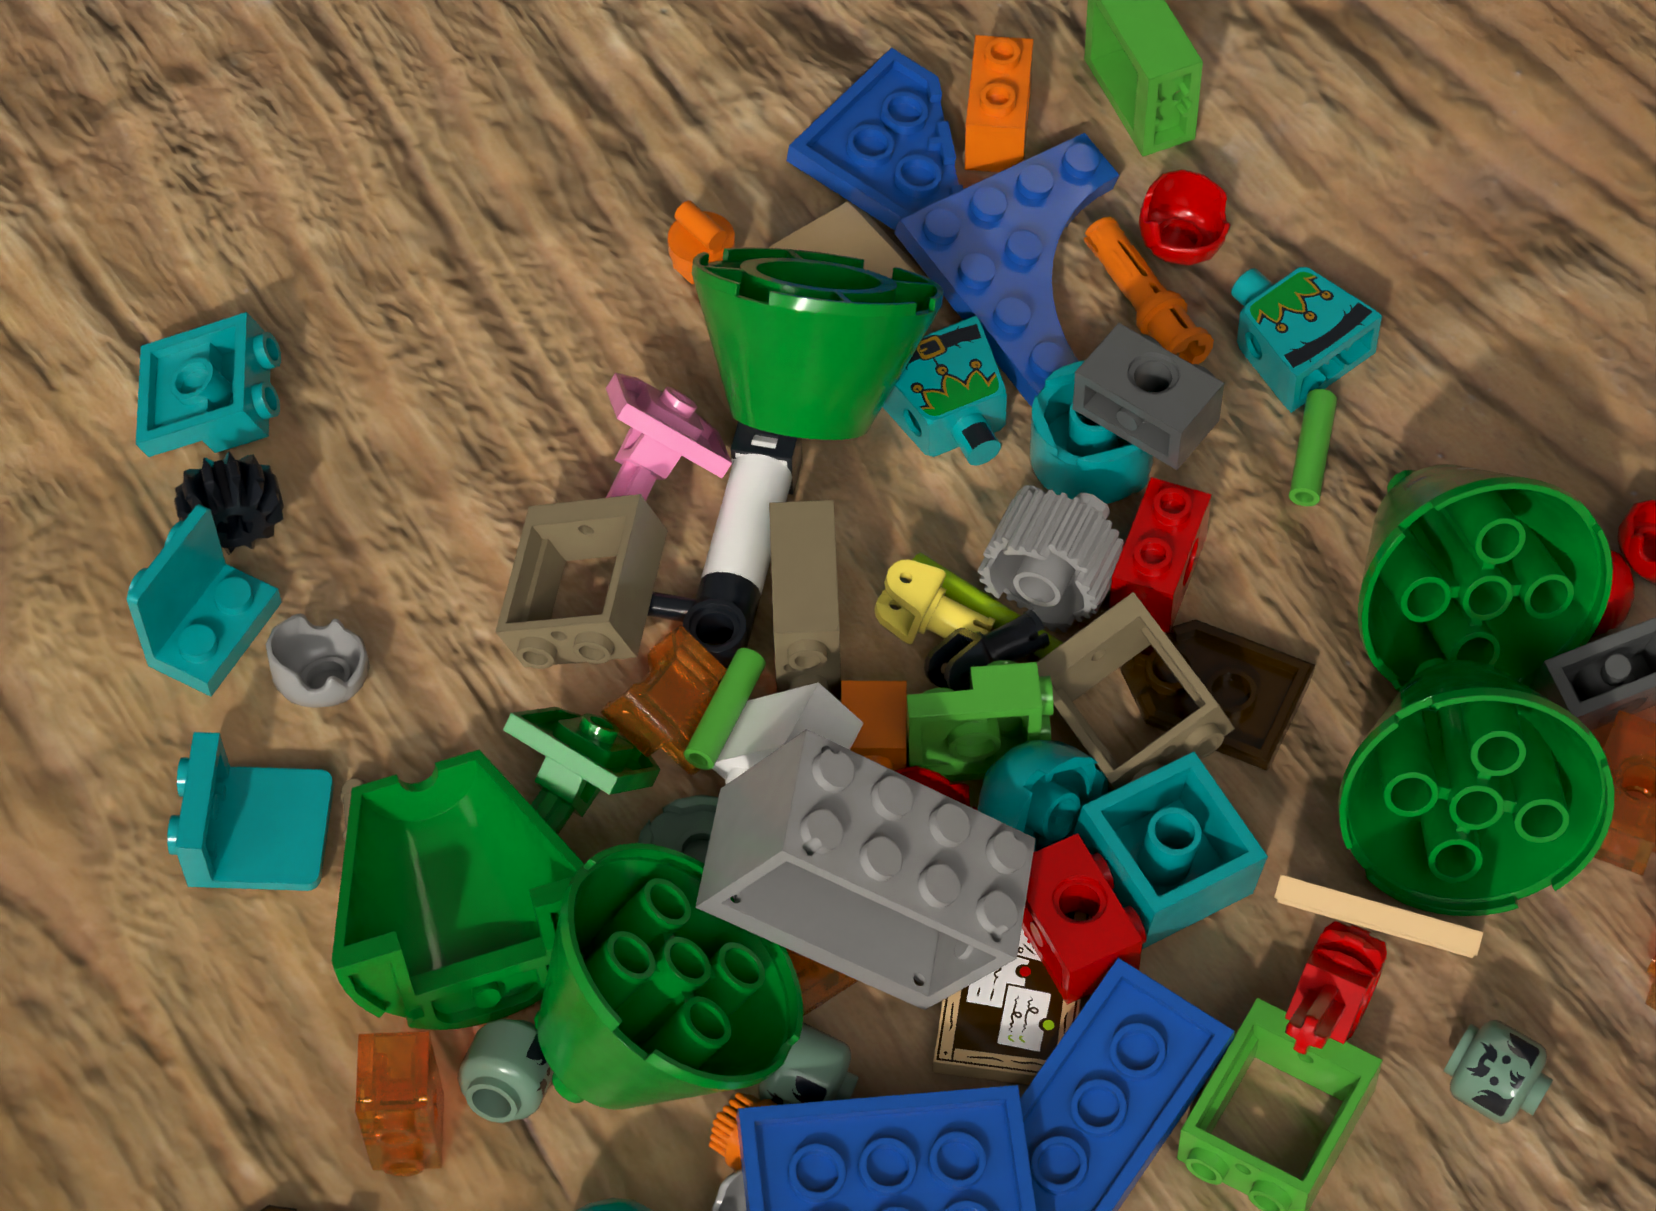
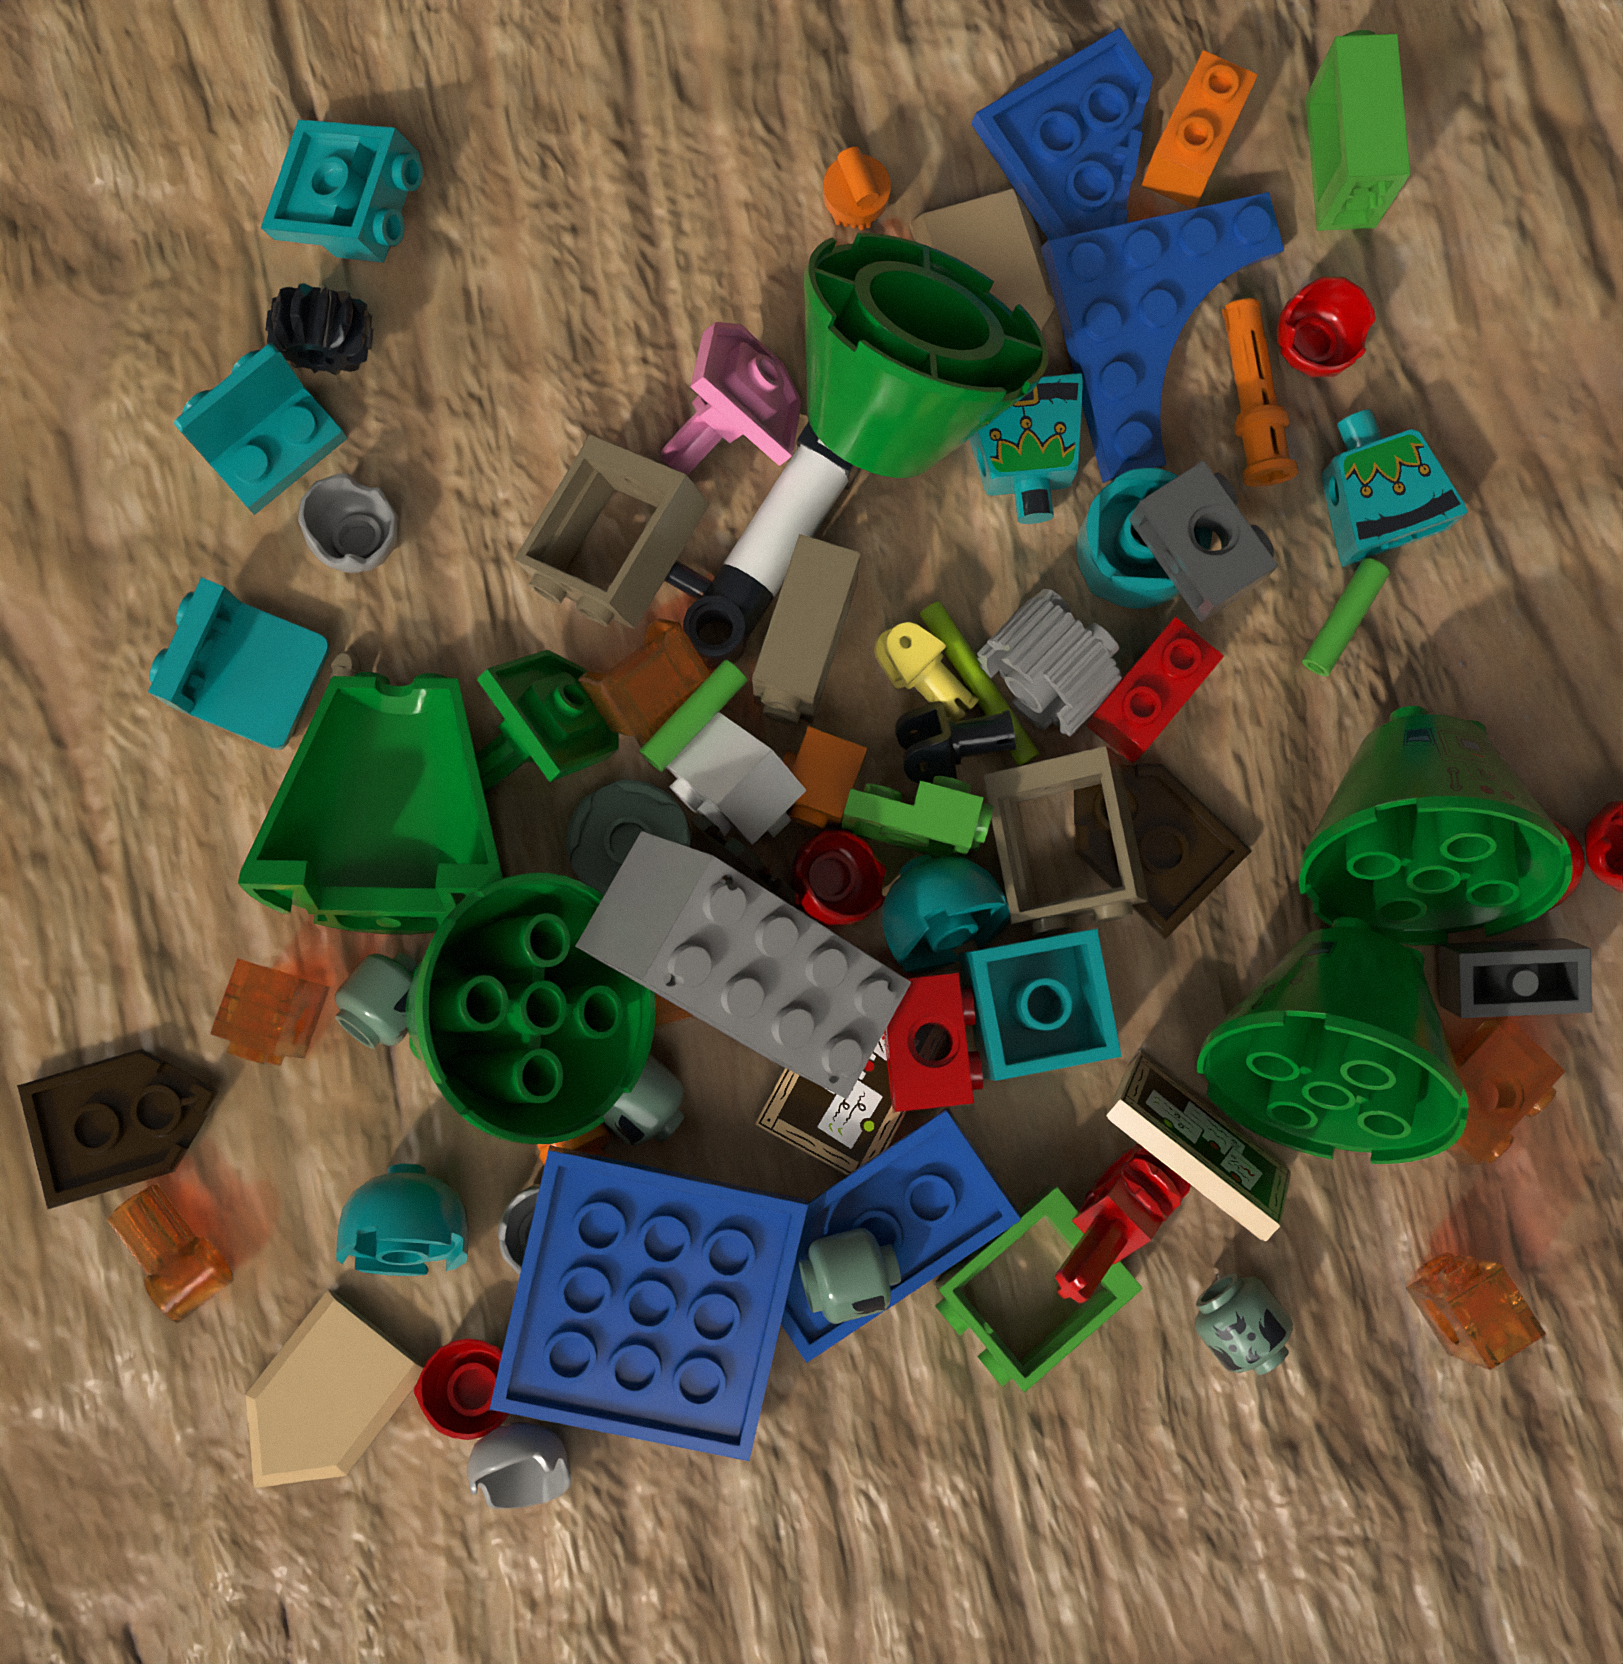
camera: 15 degrees right, 25 degrees up
(1085, 1136) = (849, 1275): none -> sand green head

